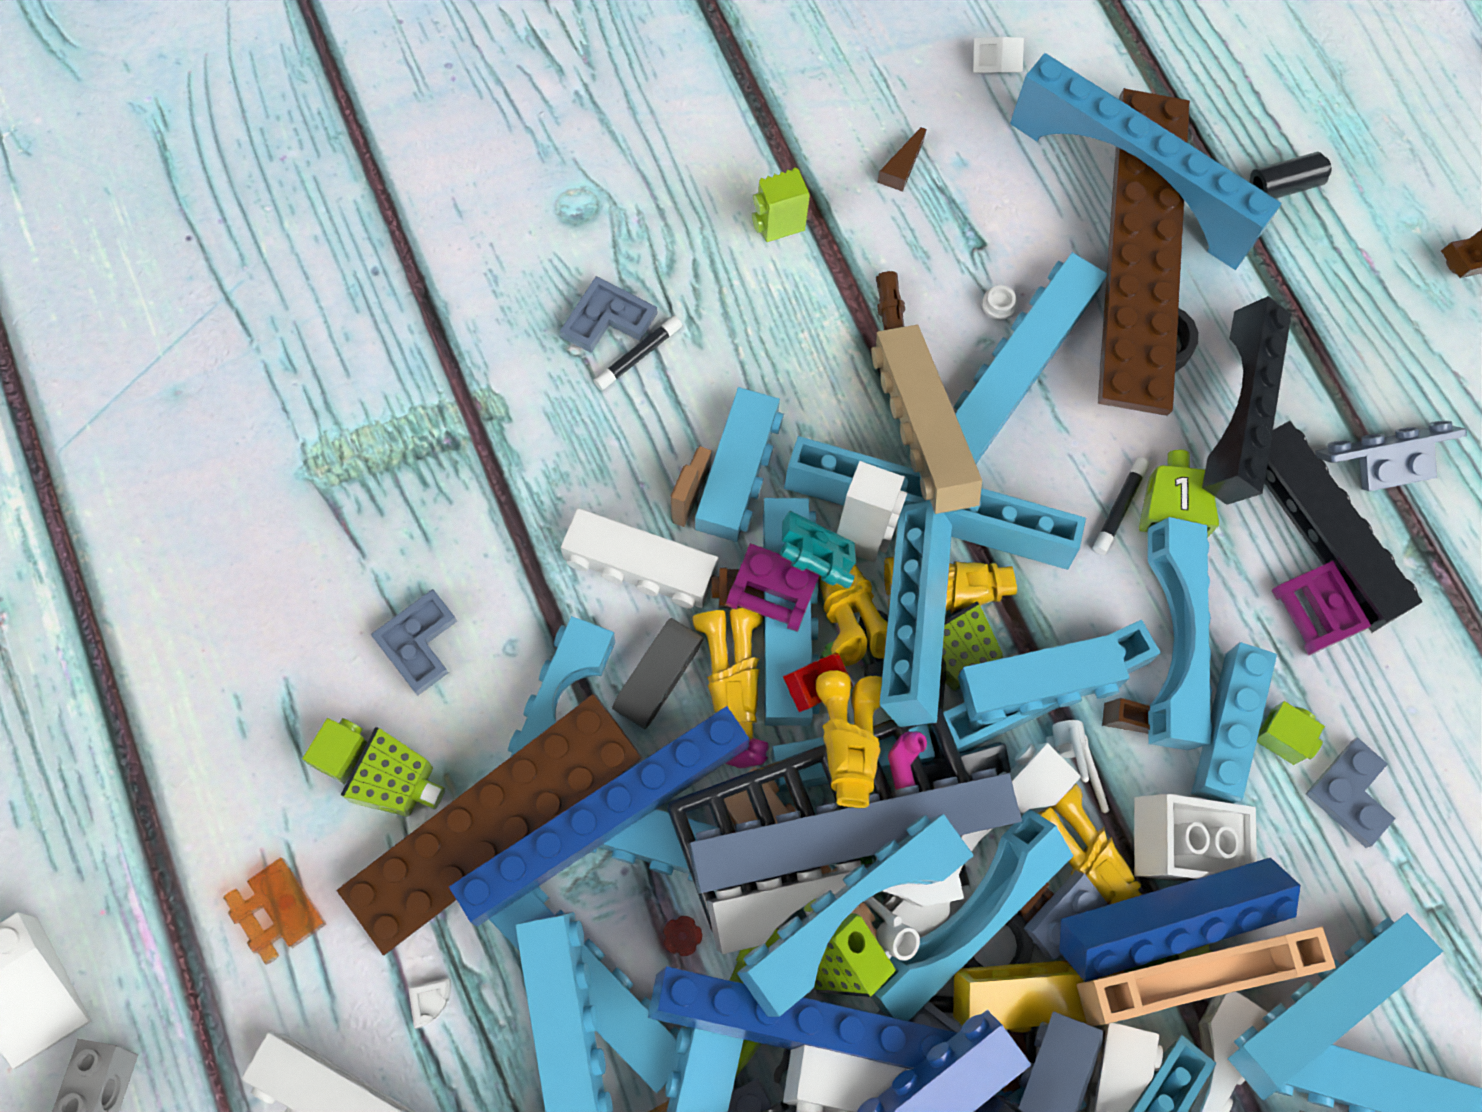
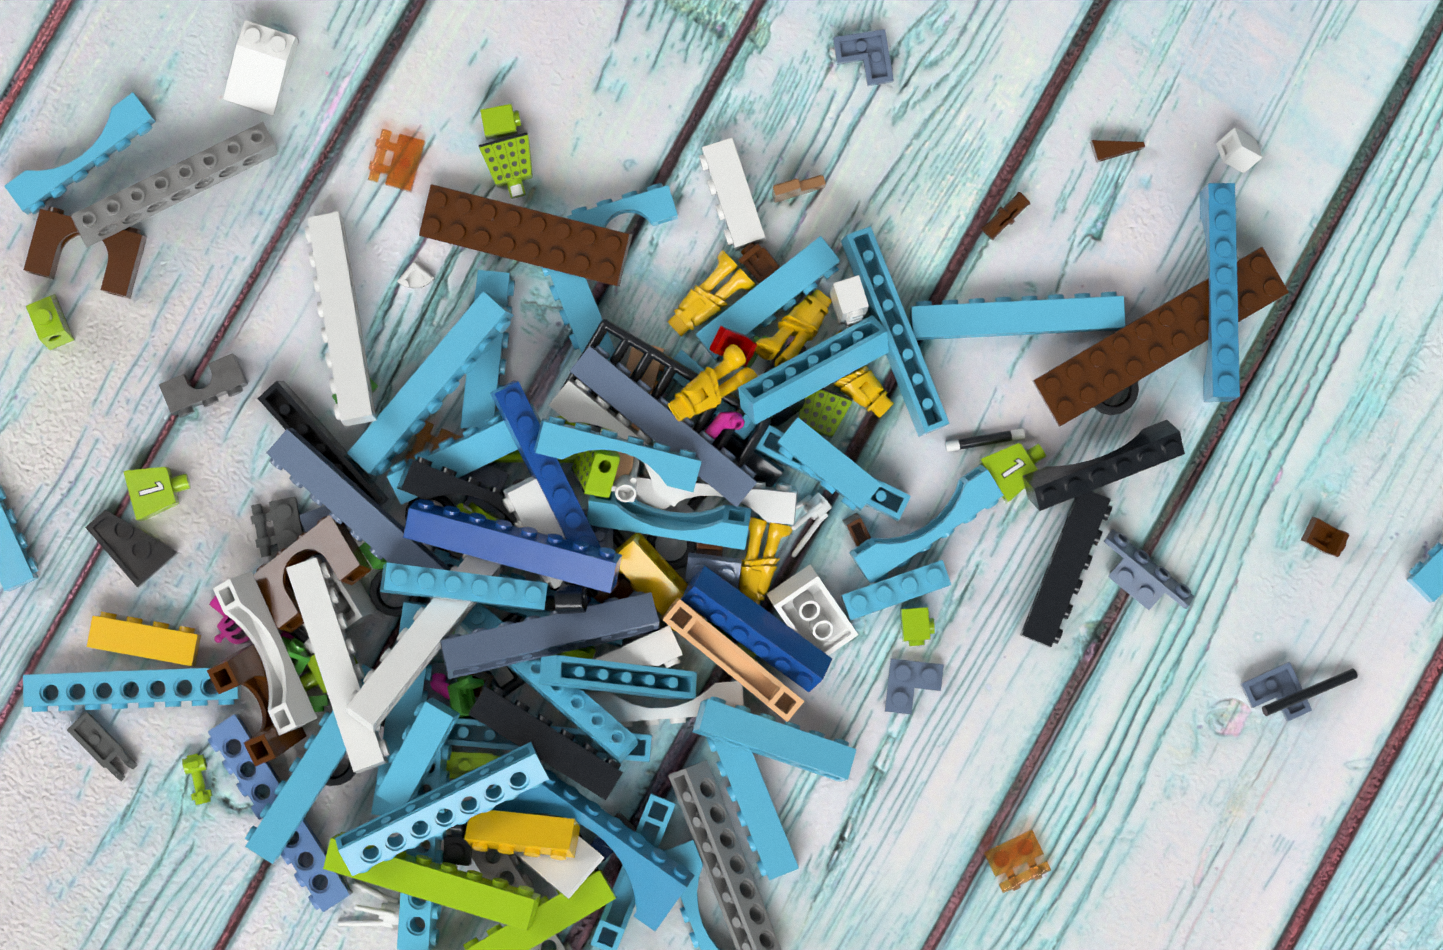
camera: 55 degrees right, 15 degrees up
(407, 639) = (586, 106): sand blue plate -> none
(599, 817) = (572, 289): blue brick -> none
(637, 353) = (859, 91): black bar -> none
(657, 673) = (676, 256): dark grey beam -> none
(674, 928) = (555, 377): clear red plate -> none
(737, 465) = (833, 204): medium azure brick -> none
(753, 756) = (666, 337): dark pink arm -> none
(776, 576) = (778, 278): magenta plate -> none
(781, 205) = (1014, 101): lime brick -> none
(818, 550) = (814, 287): teal plate -> none
(926, 420) = (938, 289): tan brick -> none
(999, 302) = (1062, 277): white plate -> none
(1292, 175) = (1294, 391): black brick -> none
(1330, 601) = (1016, 599): magenta plate -> none

